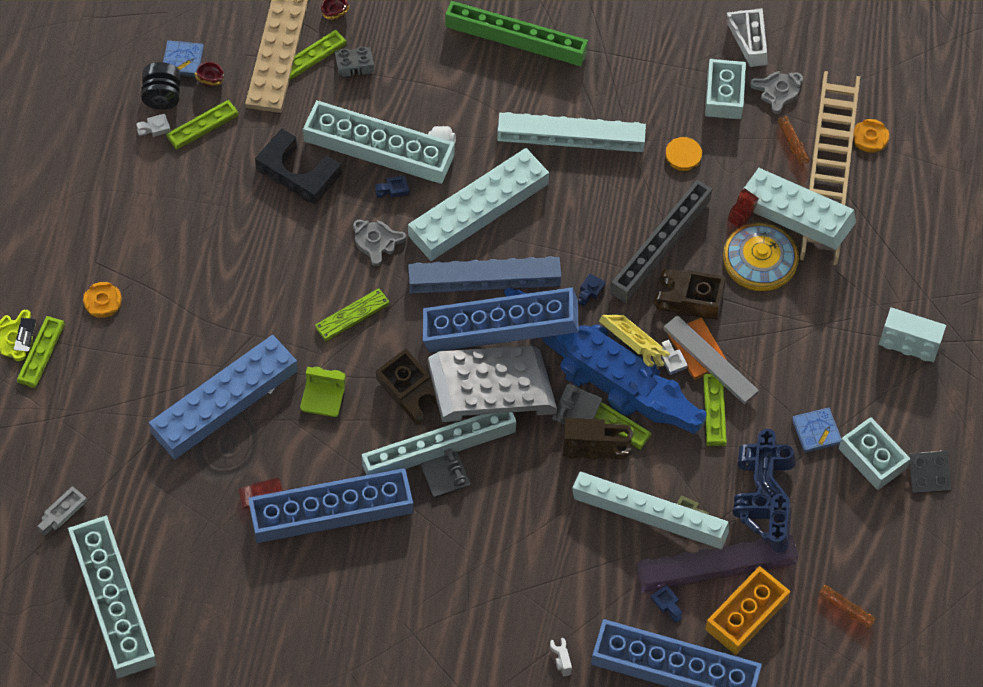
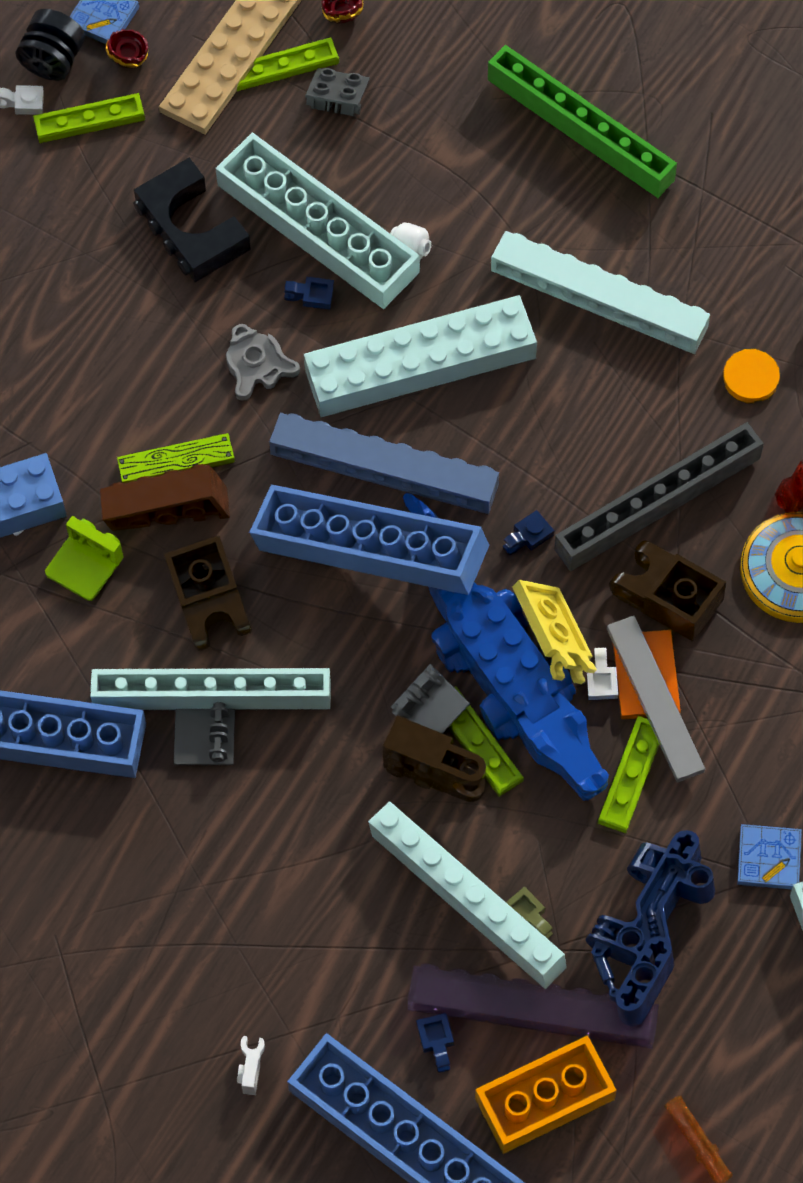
camera: 25 degrees right, 5 degrees up
(358, 339) = (165, 498): none -> reddish brown wedge
(490, 382) = (321, 625): light grey slope -> none

